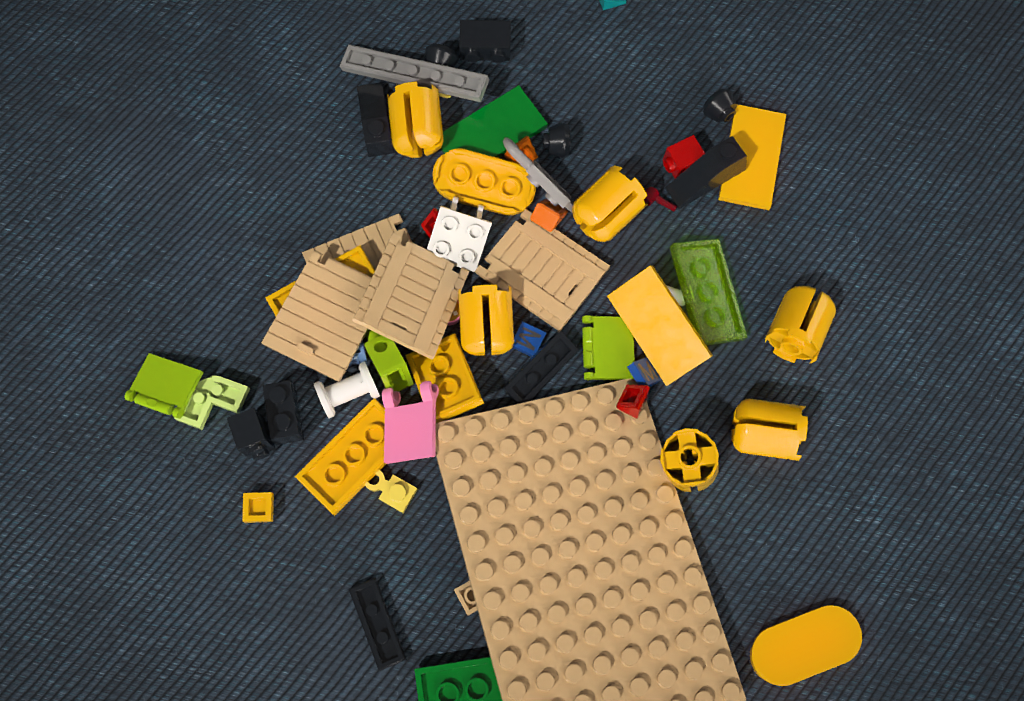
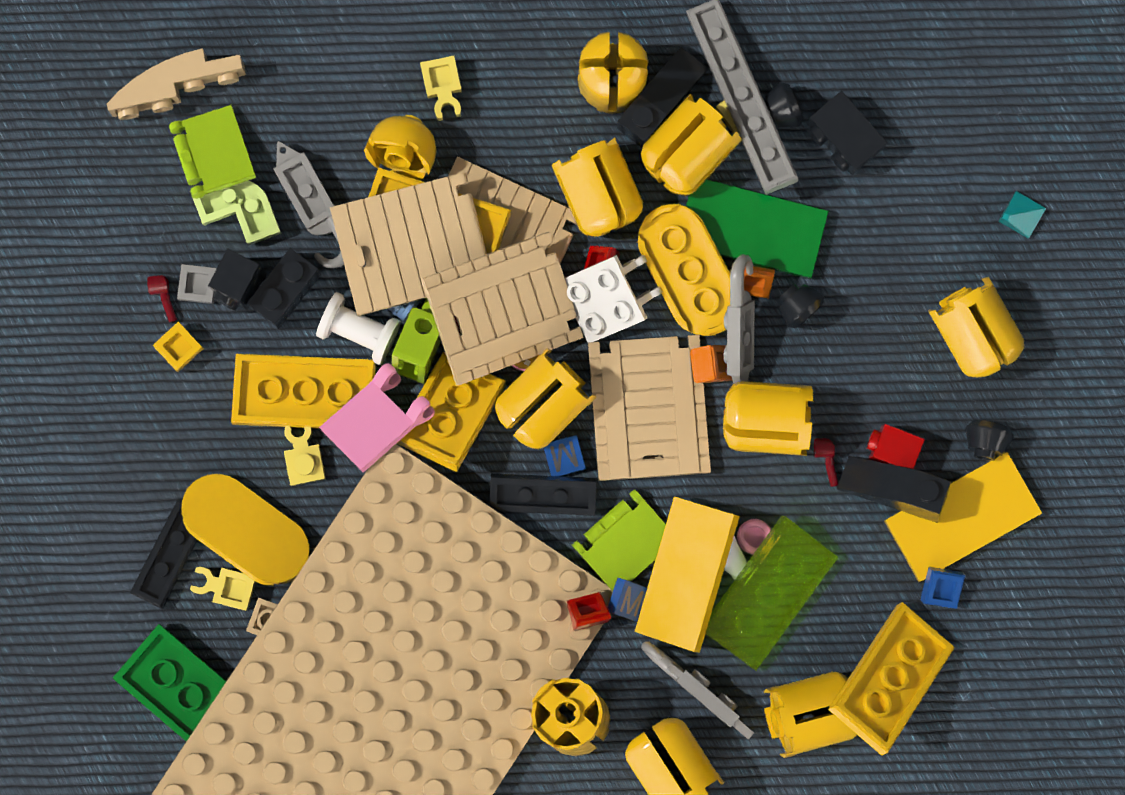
camera: 50 degrees right, 10 degrees up
(95, 380) = (160, 84): none -> tan slope
(210, 487) = (160, 285): none -> dark red hand
(232, 463) = (194, 284): none -> light grey plate
(245, 354) = (307, 197): none -> light grey plate
(252, 223) = (442, 81): none -> light yellow plate
(265, 274) = (403, 146): none -> yellow cylinder
(335, 124) = (630, 64): none -> yellow cylinder
(393, 187) = (599, 188): none -> yellow cylinder
(404, 563) = (244, 529): none -> yellow tile
(432, 603) = (230, 588): none -> light yellow plate
(656, 60) = (978, 330): none -> yellow cylinder
(668, 273) = (752, 534): none -> bright pink tile
(730, 377) = (697, 686): none -> light grey plate
(784, 198) = (942, 587): none -> blue tile
(819, 263) = (891, 678): none -> yellow tile

